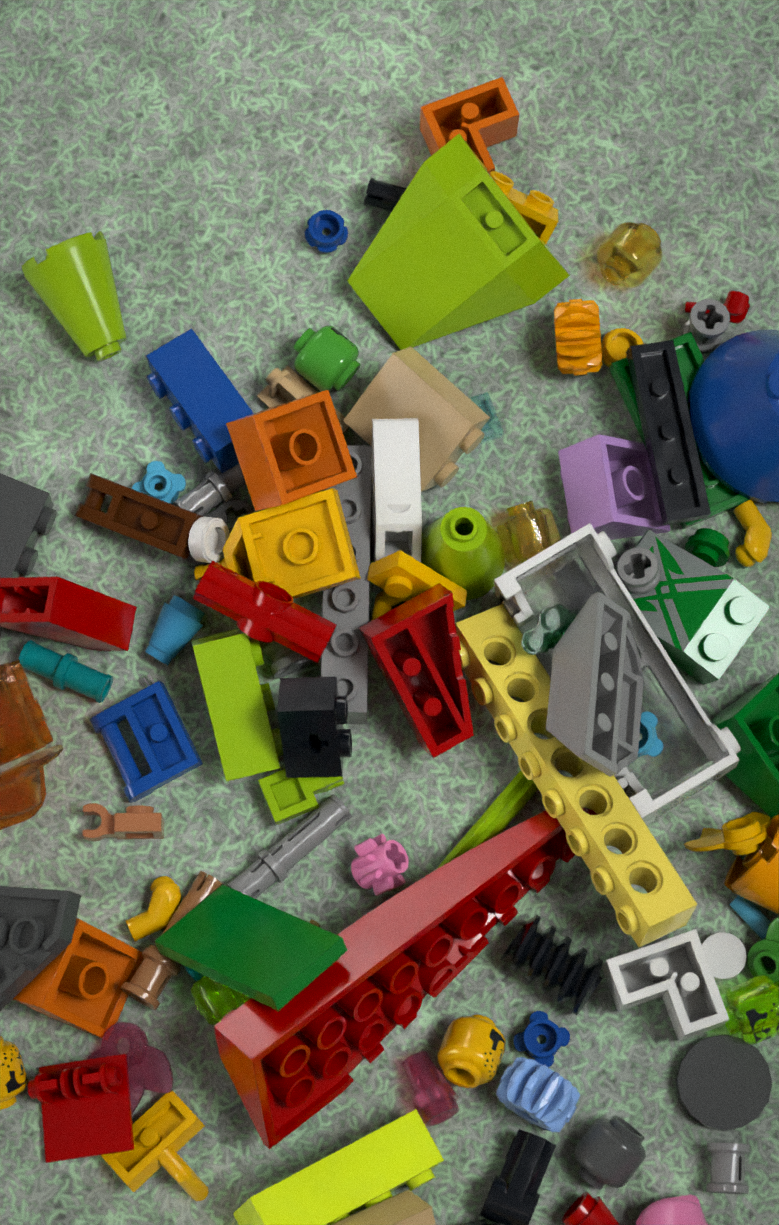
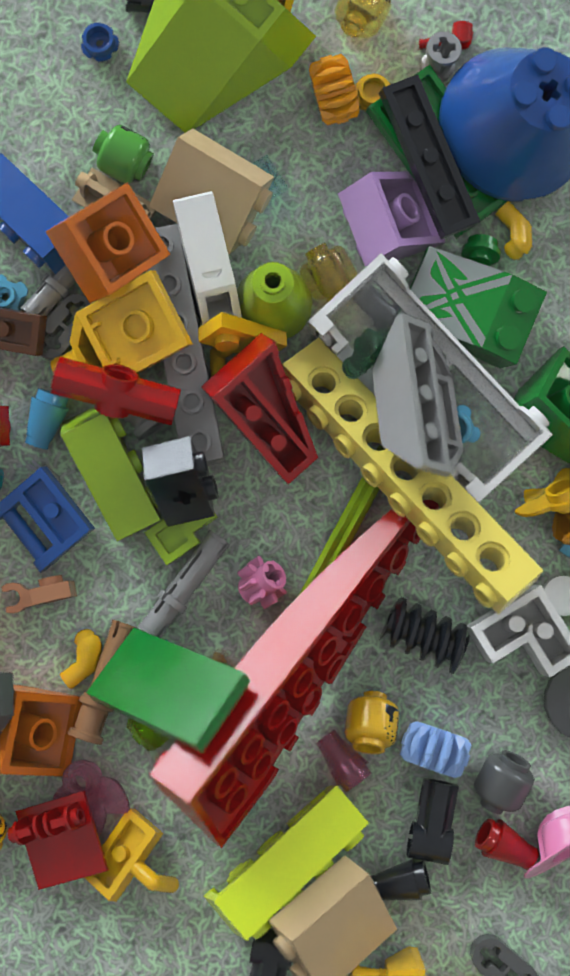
camera: 10 degrees left, 10 degrees up
(208, 539) = (55, 335): white tile -> none
(541, 1025) = (438, 695): blue plate -> none
(652, 573) = (441, 285): light grey bush -> none

